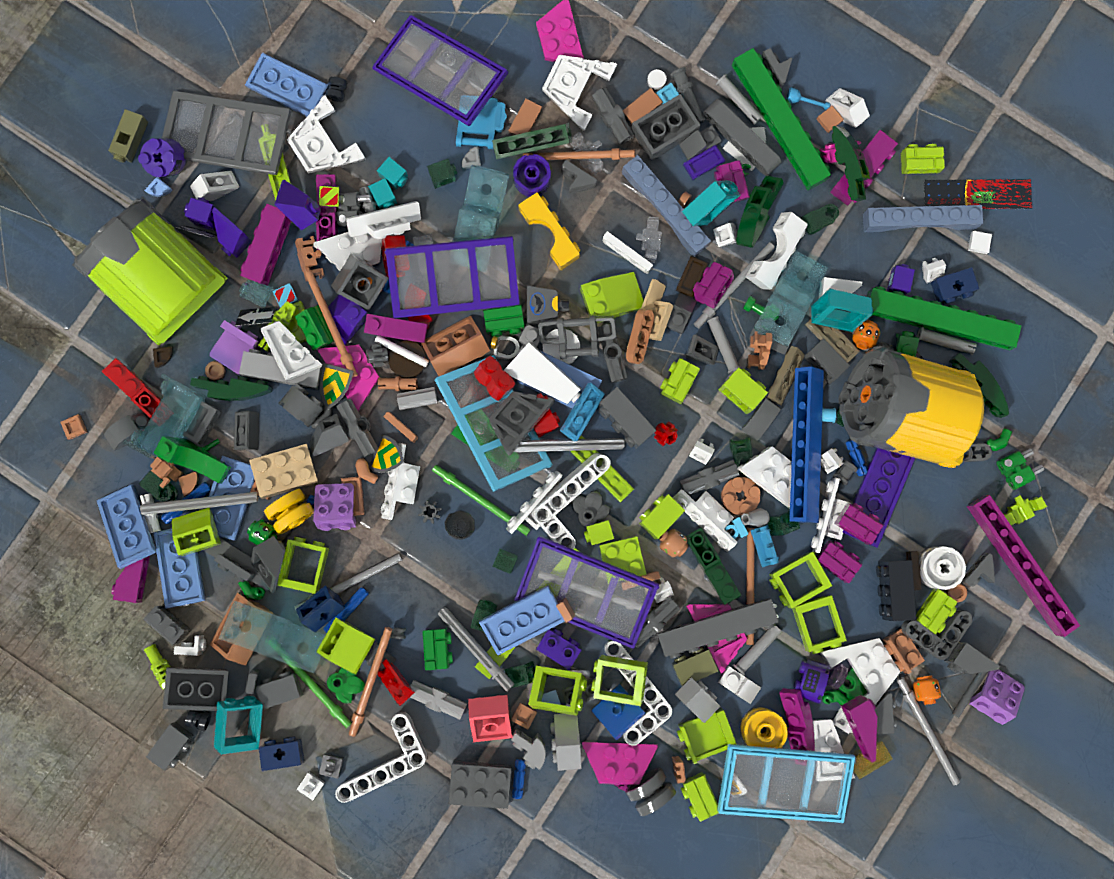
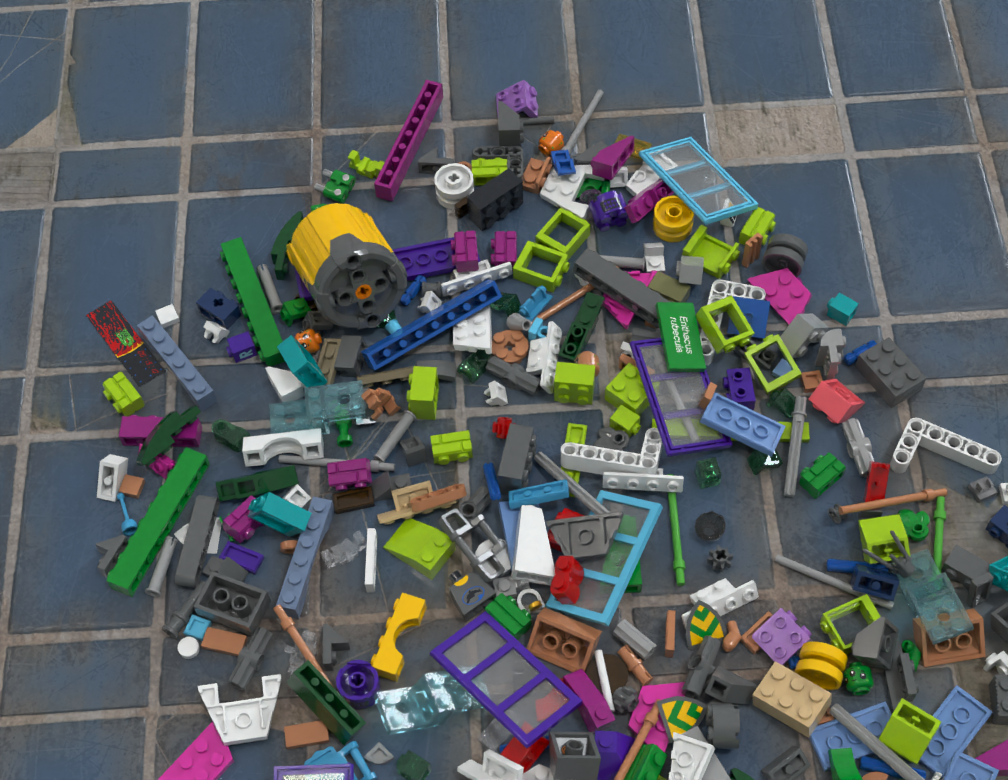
camera: 120 degrees left, 25 degrees down
(314, 637) = (901, 564): none -> dark grey plant
(568, 798) = (842, 309): none -> teal brick
(624, 387) = (492, 481): none -> blue axle
(636, 633) = (680, 337): none -> green tile
(893, 679) = (562, 162): none -> blue slope

